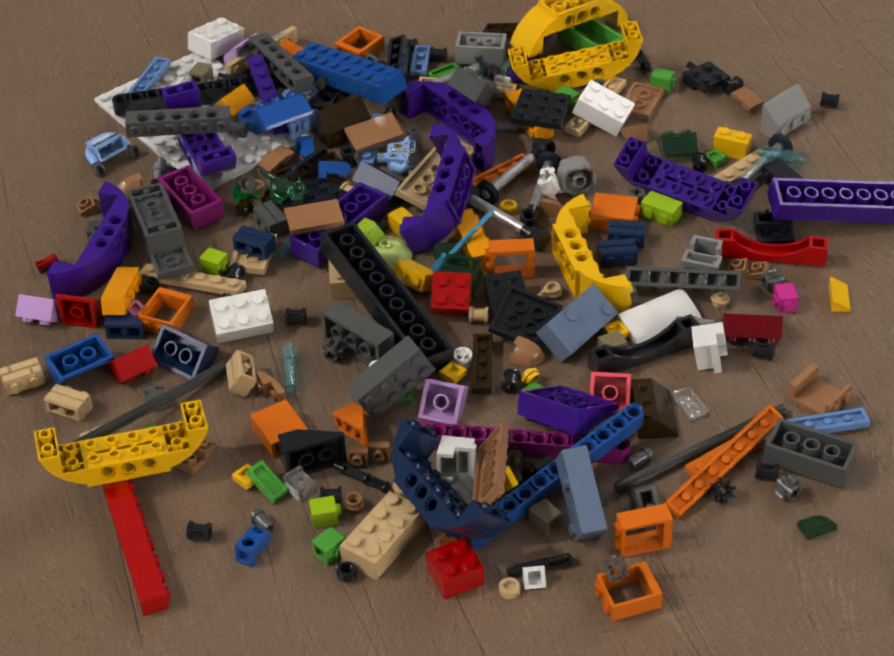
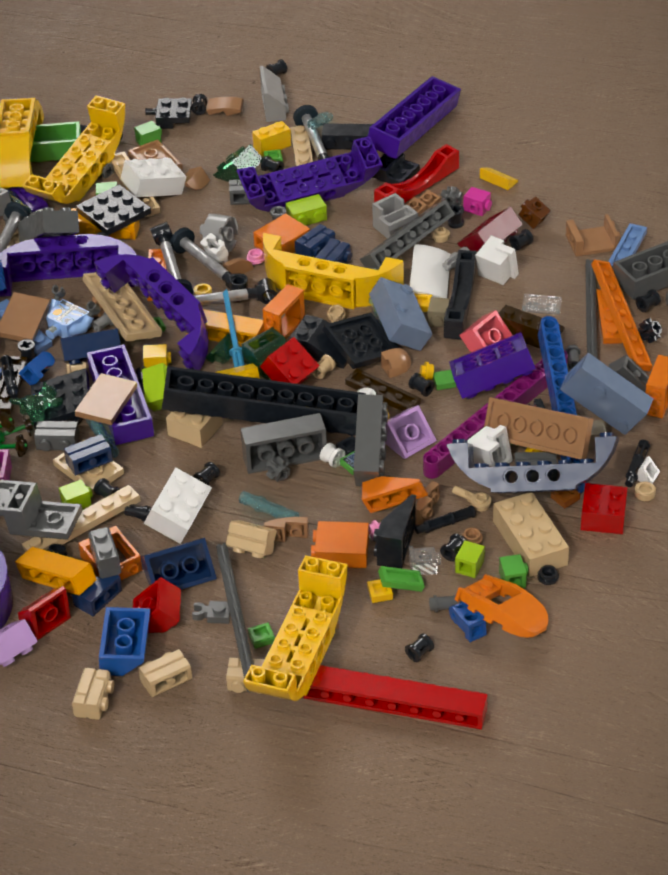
camera: 55 degrees left, 0 degrees up
(148, 302) = (104, 552): none -> dark grey brick
(274, 573) = (518, 615): none -> orange slope
(750, 298) = (456, 221): none -> black bush
(806, 338) = (534, 212): none -> reddish brown brick

